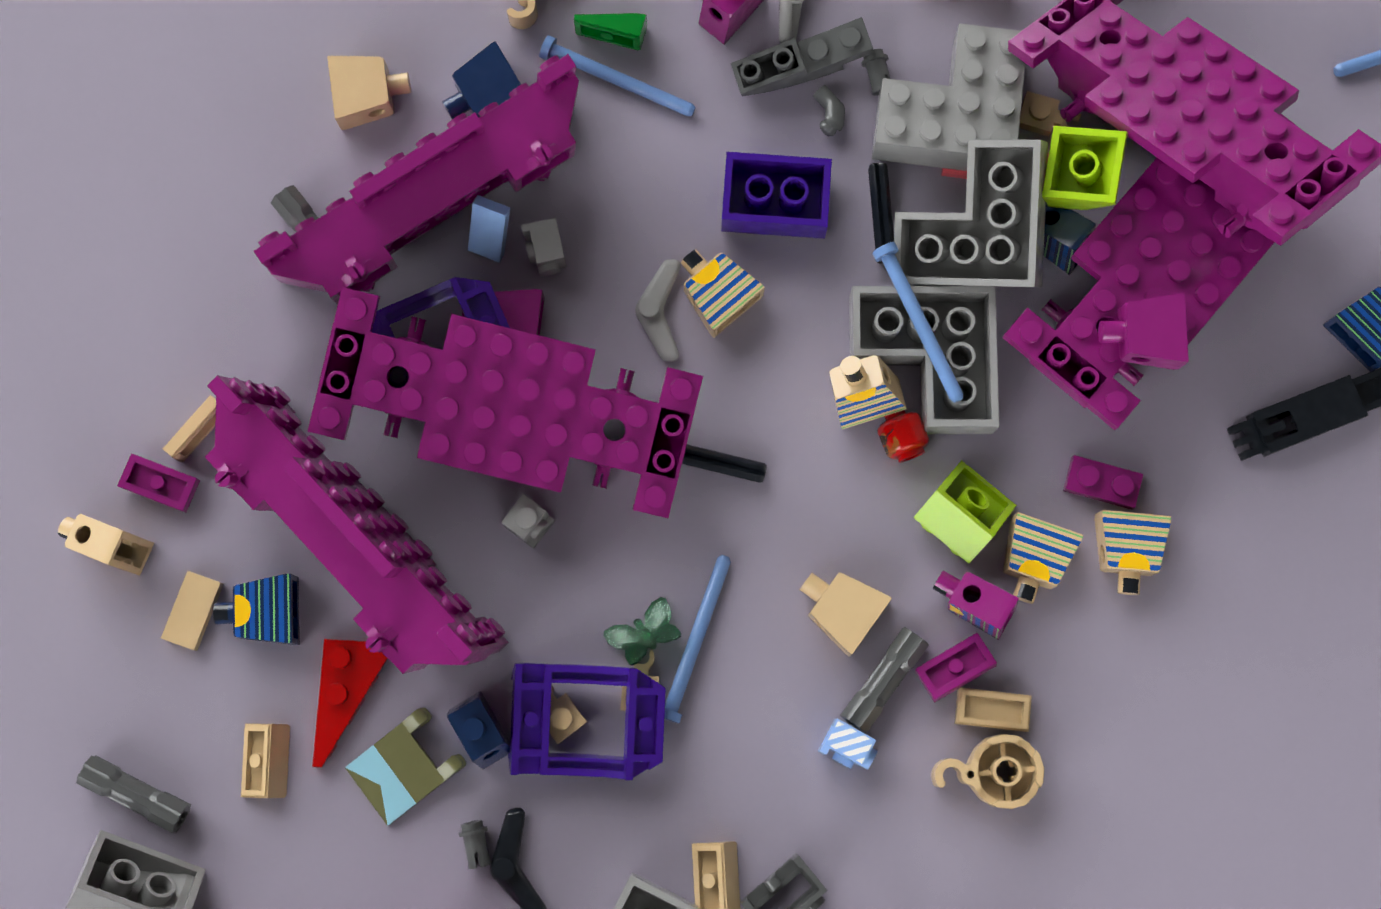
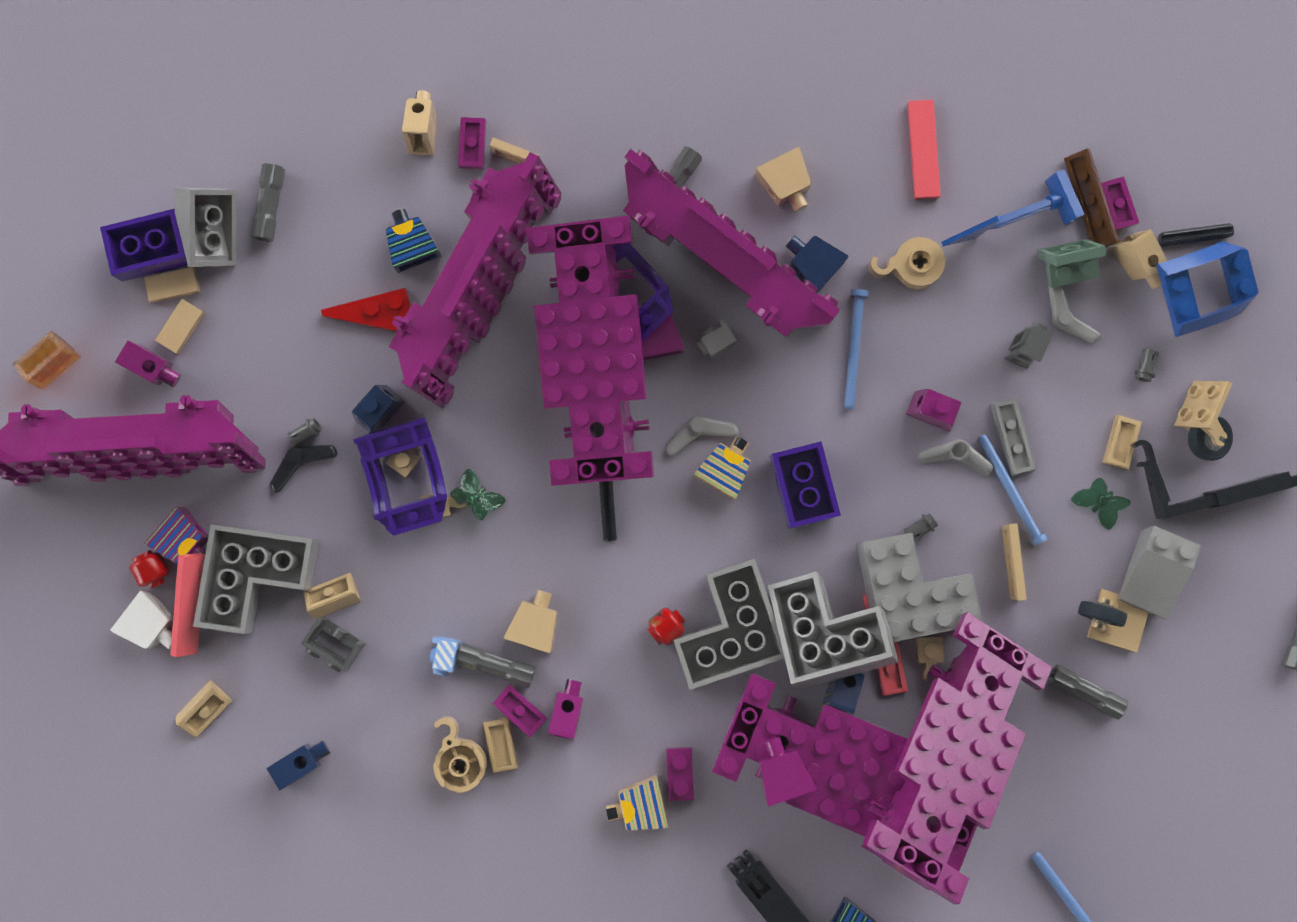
camera: 70 degrees right, 5 degrees up
(192, 611) = (396, 196): tan tile -> none
(265, 760) = (315, 278): tan slope -> none
(399, 771) = (336, 365): olive flag -> none
(488, 228) = (714, 298): light blue tile -> none
(528, 521) = (524, 393): light grey brick -> none
(618, 29) = (889, 339): green slope -> none
(695, 639) = (494, 531): medium blue bar -> none
(802, 61) = (910, 472): dark grey slope -> none
(834, 111) = (881, 506): dark grey arm -> none
(865, 390) = (685, 591): tan torso -> none
(881, 204) = (821, 561): black axle -> none
(886, 254) = (745, 611): medium blue bar -> none
(965, 512) = (627, 685): lime slope -> none
(1037, 554) = (613, 743): torso -> none
(1084, 167) = (887, 692): lime slope -> none

